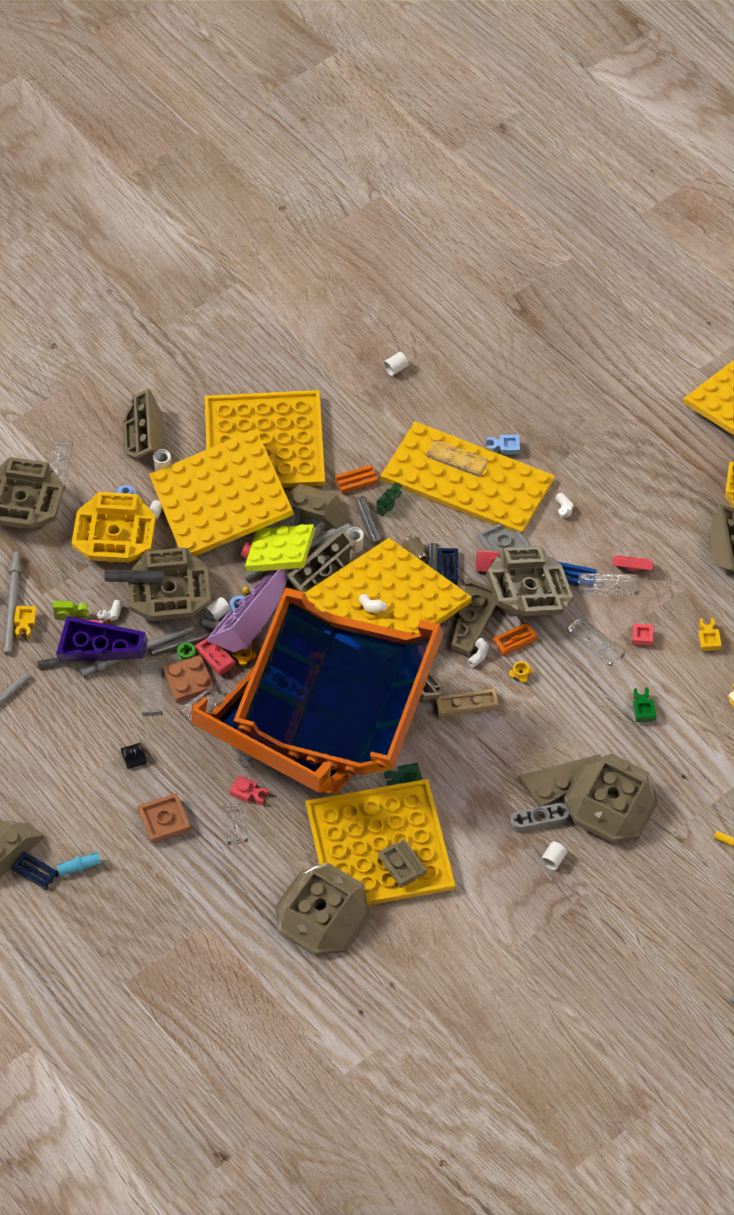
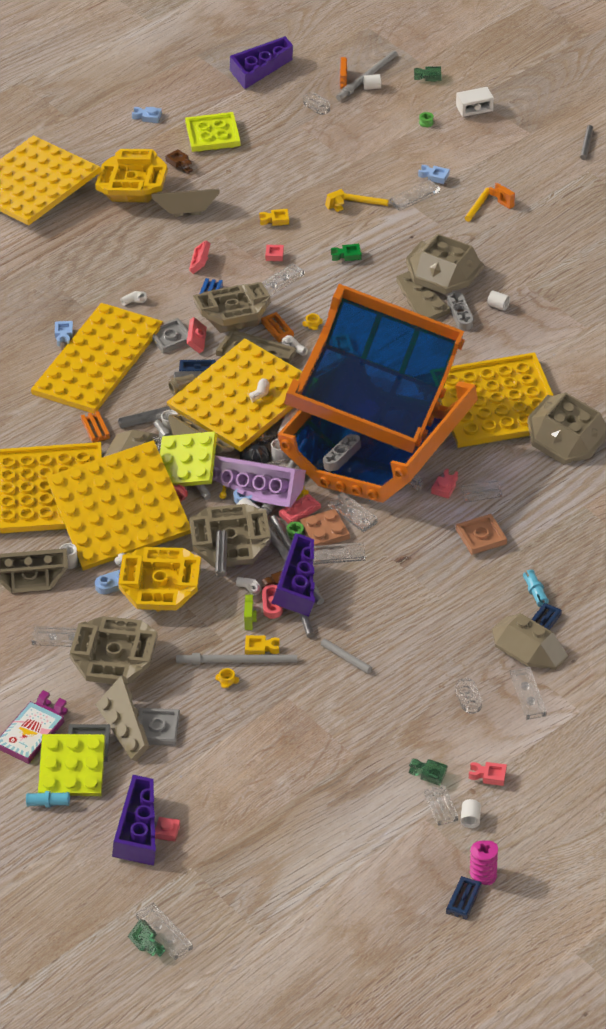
camera: 90 degrees left, 10 degrees down
(133, 755) = (412, 560): black tile -> none
(386, 501) = (124, 401): clear green plate -> none
(402, 863) = (520, 377): dark tan plate -> none
(457, 458) = (82, 356): clear tile -> none
(608, 584) = (222, 270): clear tile -> none

